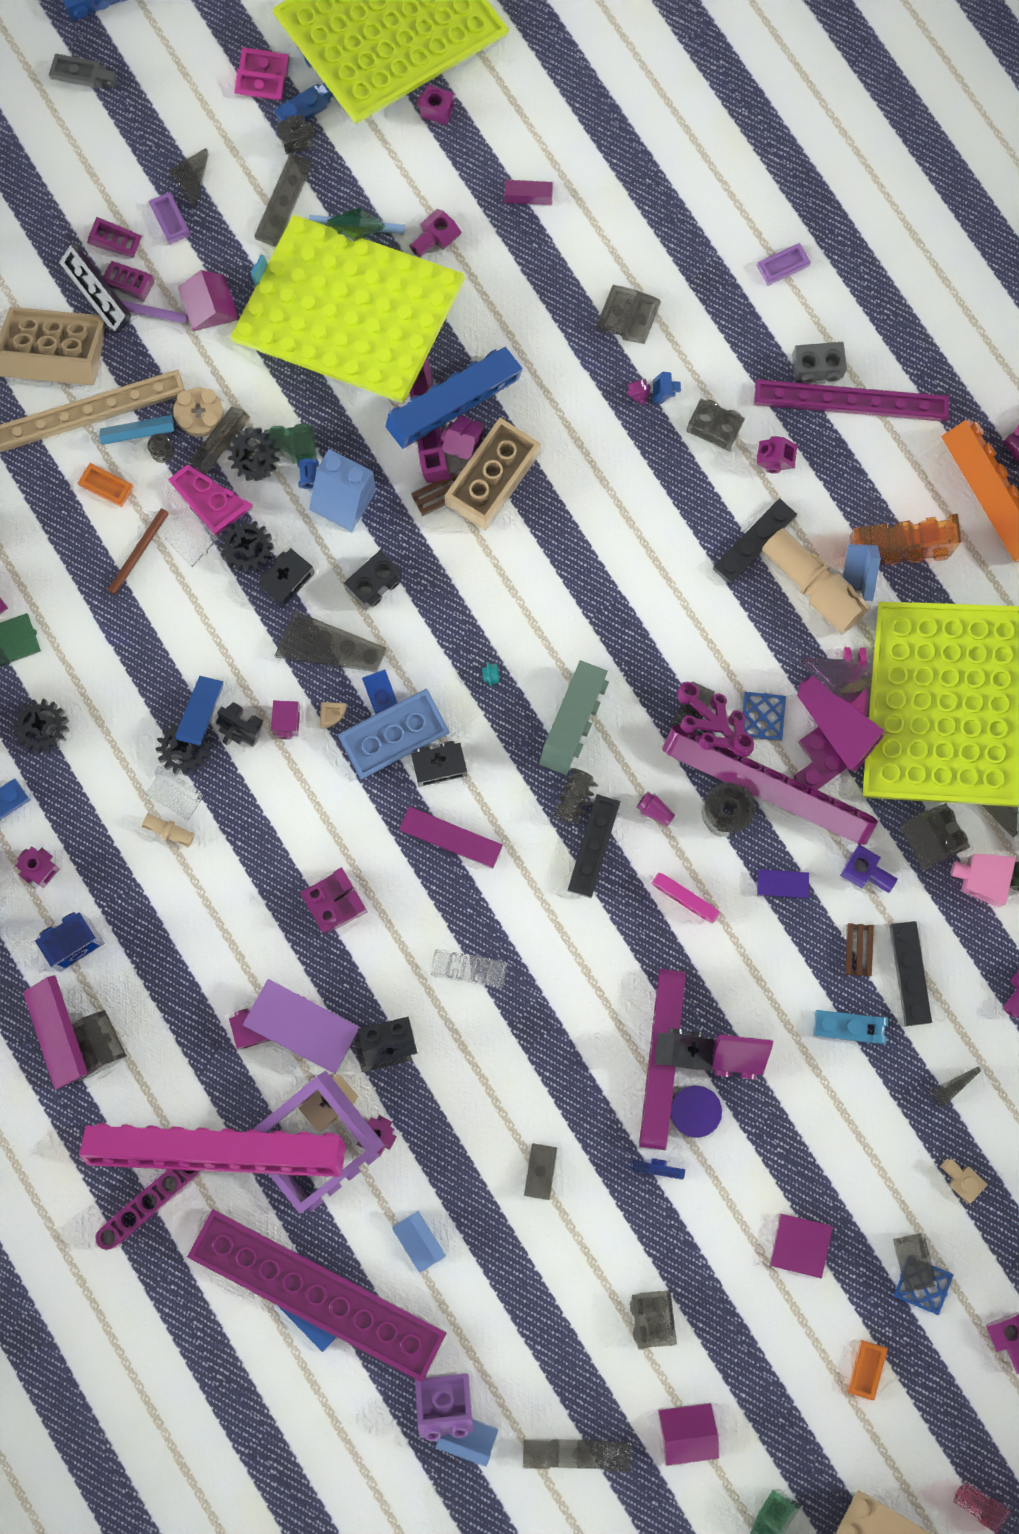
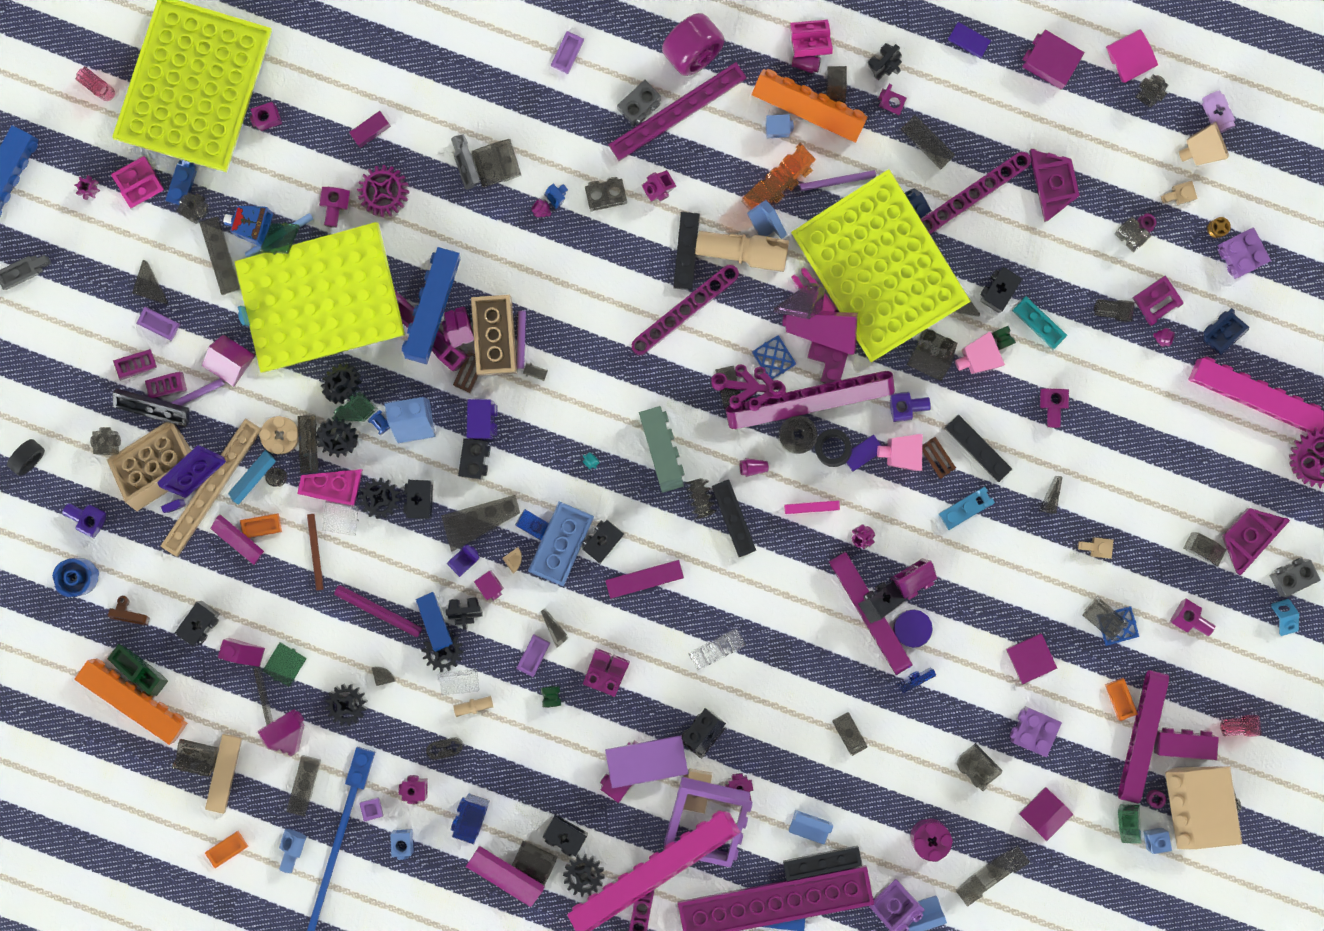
camera: 30 degrees left, 10 degrees up
(23, 287) = (105, 442): none -> clear smoke brick
(36, 398) = (172, 506): none -> dark purple tile
(70, 478) = (236, 539): none -> magenta tile
(82, 375) = (191, 471): none -> dark purple tile
(100, 855) = (445, 752): none -> clear smoke beam
(101, 727) = (382, 675): none -> clear smoke tile
(127, 1104) = (577, 871): none -> black gear
(151, 658) = (378, 611): none -> magenta axle
(155, 1026) = (560, 826): none -> black brick
(209, 43) = (81, 186): none -> magenta gear
(256, 882) = (551, 696): none -> dark green wheel
(272, 827) = (533, 655): none -> medium lavender tile
(280, 673) = (463, 560): none -> dark purple bracket
(301, 406) = (341, 383): none -> black gear
(316, 817) = (557, 633): none -> clear smoke slope
(339, 189) = (250, 223): none -> blue torso
(401, 1291) = (822, 863): none -> black plate
(413, 544) = (481, 419): none -> dark purple brick
(505, 543) = (534, 371): none -> clear smoke pin
(511, 249) = (378, 196): none -> magenta gear
(516, 502) = (521, 339): none -> medium lavender bar
(530, 1371) = (933, 850): none -> magenta brick
(597, 290) = (465, 162): none -> dark grey hinge
(717, 970) = (863, 536): none -> magenta gear
(718, 591) = (691, 303): none -> magenta beam
(745, 1330) = (1035, 731): none -> medium lavender plate
(760, 835) = (826, 435): none -> black tyre
(827, 914) = (903, 452): none -> bright pink torso
(831, 1510) = (1162, 801): none -> magenta bush
(861, 1431) = (1143, 736): none -> magenta beam
(904, 1477) = (1186, 744): none -> magenta brick
(919, 342) = (693, 44): none -> magenta wheel
(945, 488) = (778, 126): none -> medium blue brick
(960, 585) = (837, 180): none -> medium lavender bar

